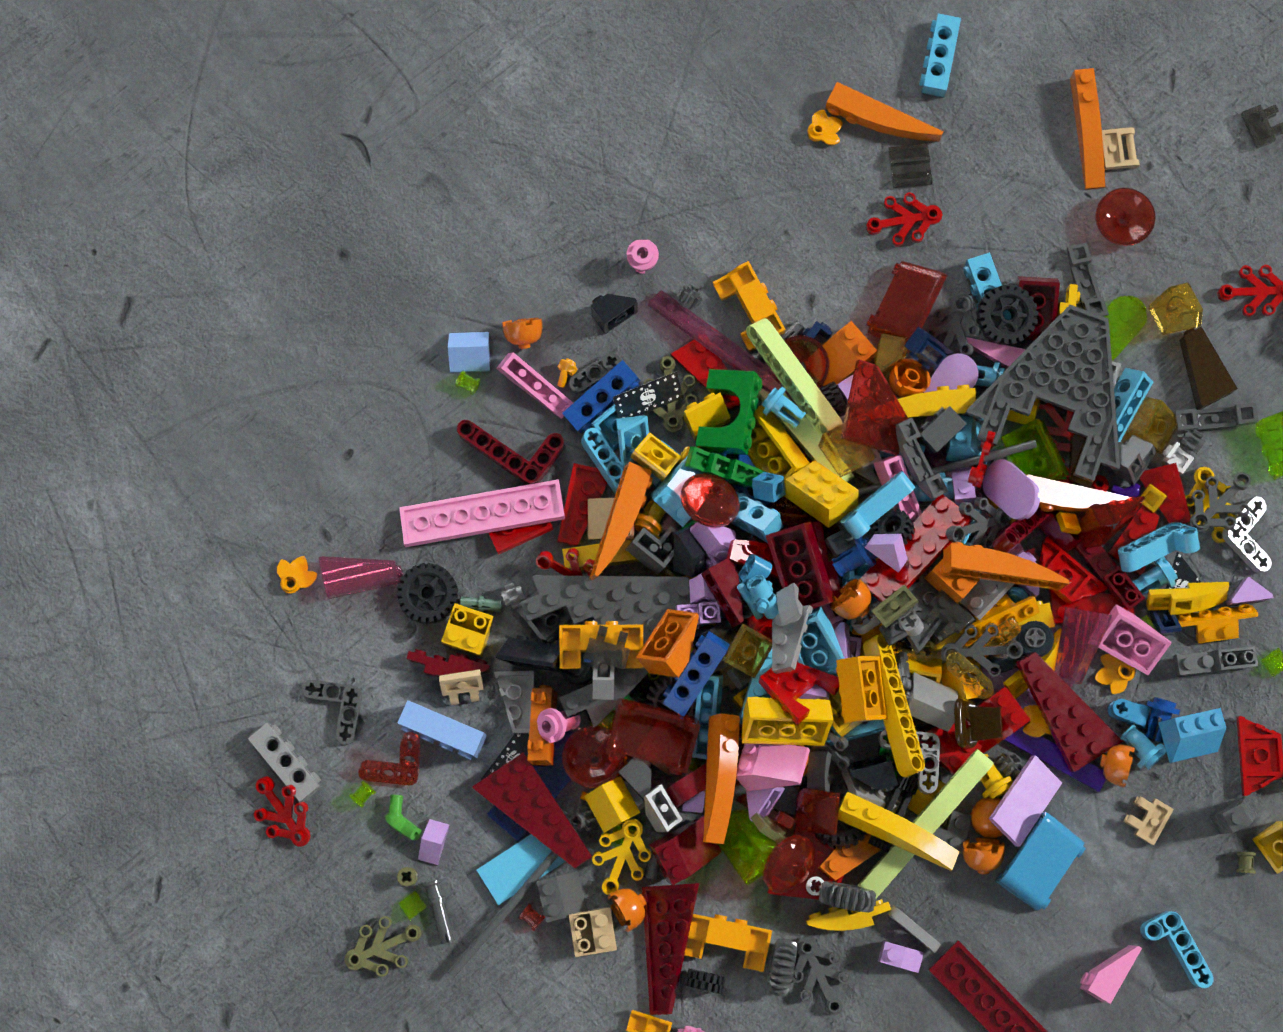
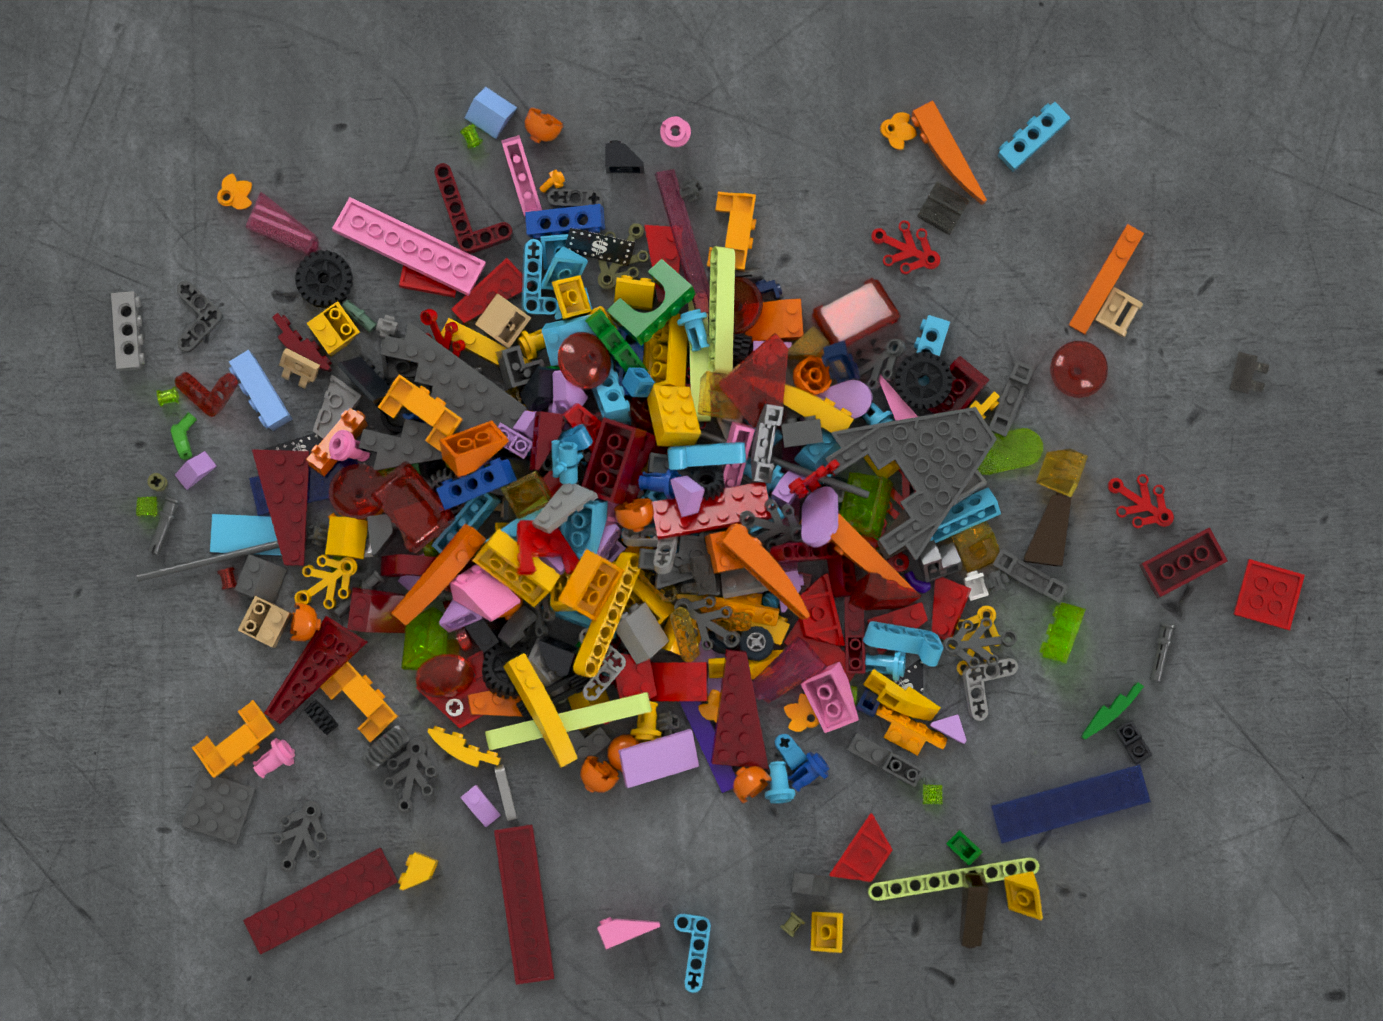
camera: 35 degrees right, 5 degrees up
(284, 813) = (99, 369): red plant -> none
(379, 948) = (99, 520): olive plant -> none
(603, 681) = (406, 436): light grey slope -> none
(606, 652) = (419, 420): clear smoke plate -> none
(623, 513) = (512, 323): orange slope -> none
(661, 810) = (378, 567): light grey slope -> none
(767, 827) = (447, 637): olive plate -> none
(788, 604) = (580, 482): light grey slope -> none
(817, 811) = (492, 651): clear red slope -> none
(847, 896) = (470, 731): dark grey gear -> none
(895, 606) = (660, 540): olive plate -> none
(903, 668) = (637, 594): dark grey axle -> none
(984, 723) = (669, 677): dark brown piece -> none
(1041, 862) = (637, 812): dark azure windscreen -> none
(1068, 523) = (849, 574): yellow tile -> none
(1153, 498) = (932, 602): yellow tile -> none
(1153, 821) = (746, 843): tan plate -> none
(1193, 734) = (822, 801): dark azure slope -> none

